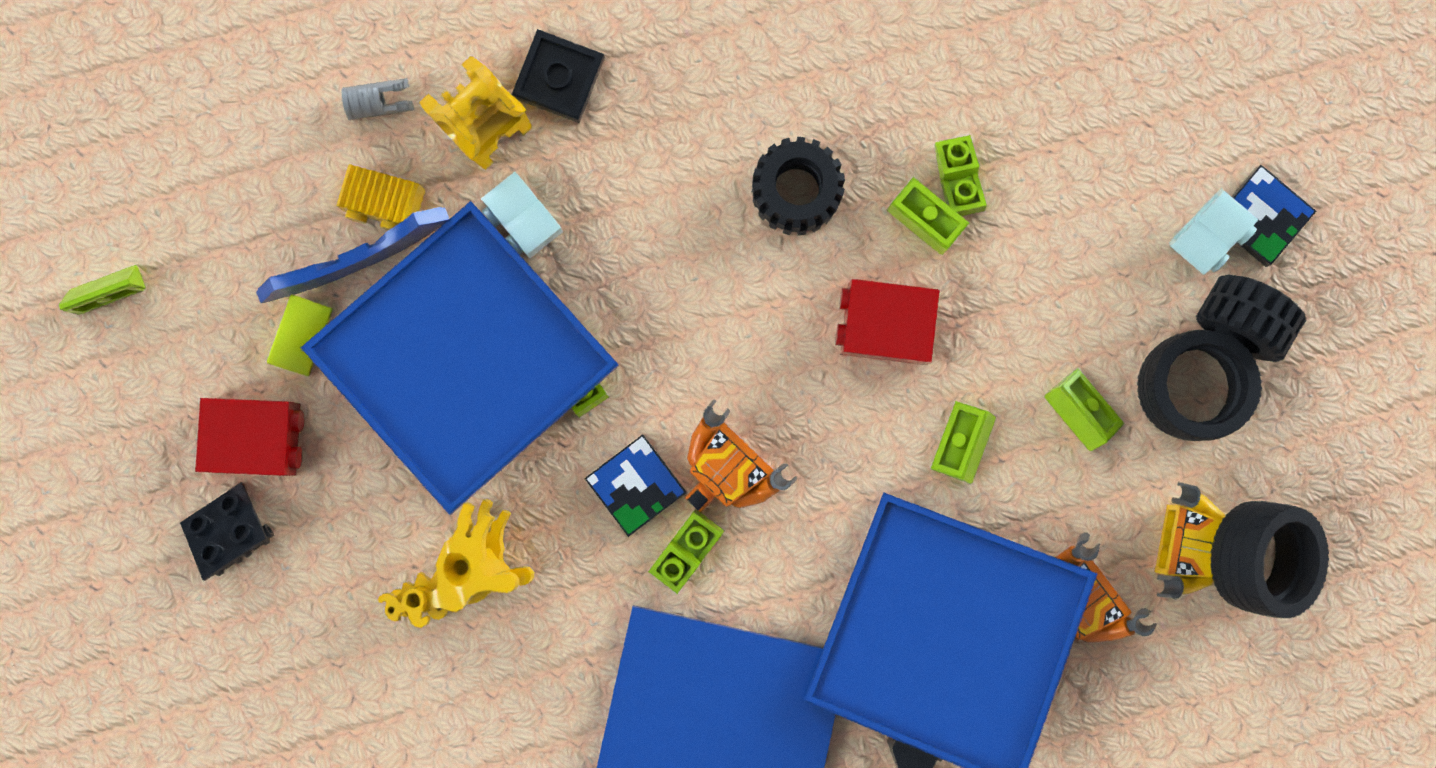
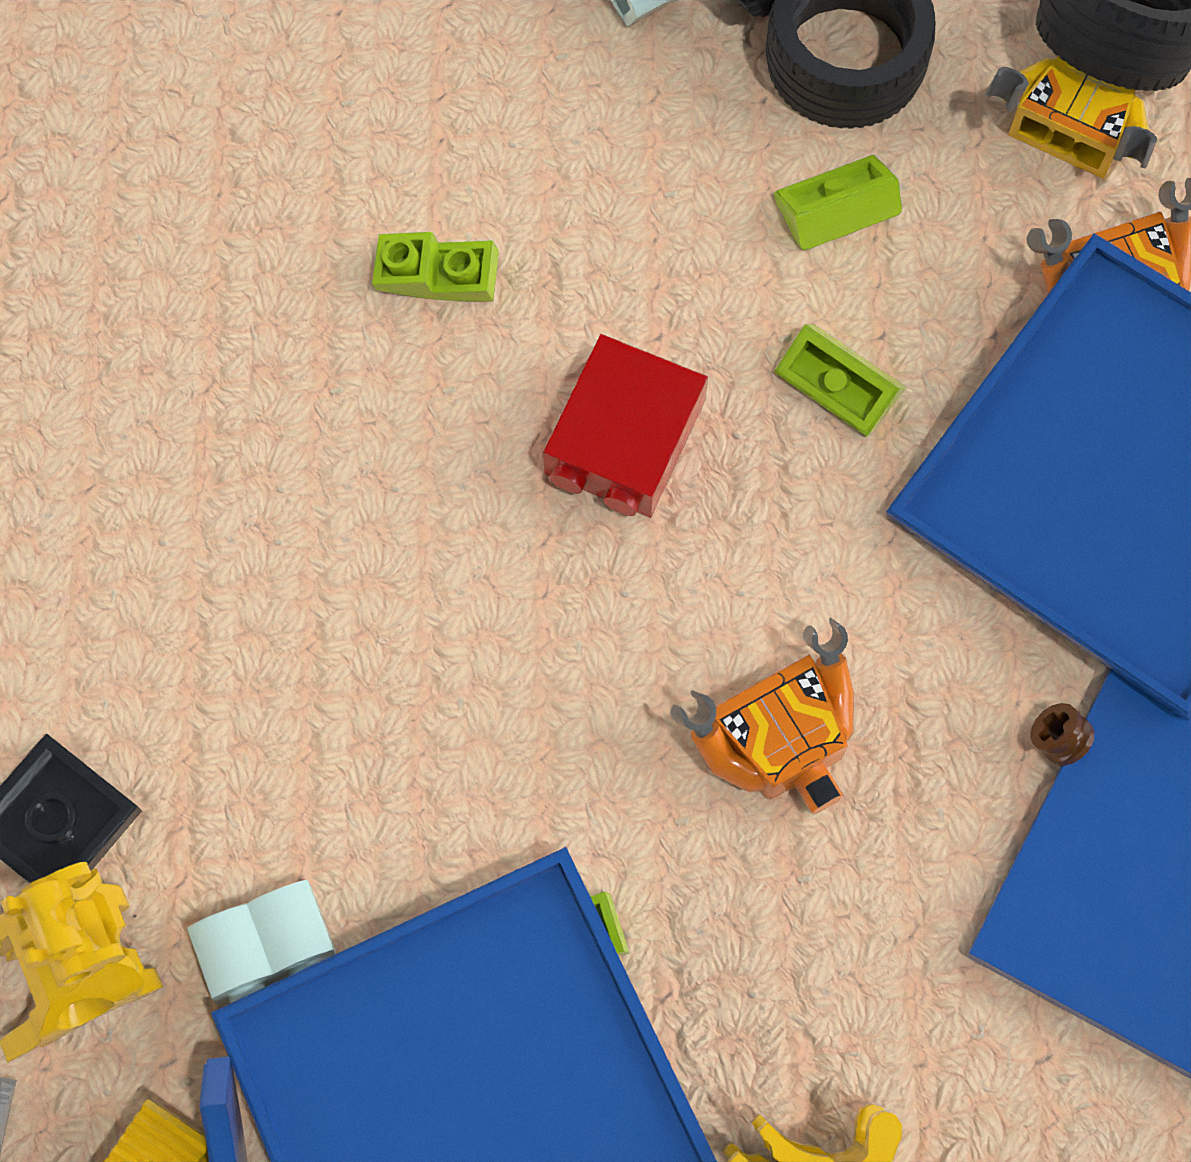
camera: 70 degrees left, 15 degrees down
(635, 485) = (769, 891): tile -> none
(686, 551) = (898, 841): lime slope -> none
(769, 634) = (1073, 743): none -> reddish brown bush
(803, 157) = (361, 451): black tyre -> none
(927, 216) = (481, 327): lime slope -> none

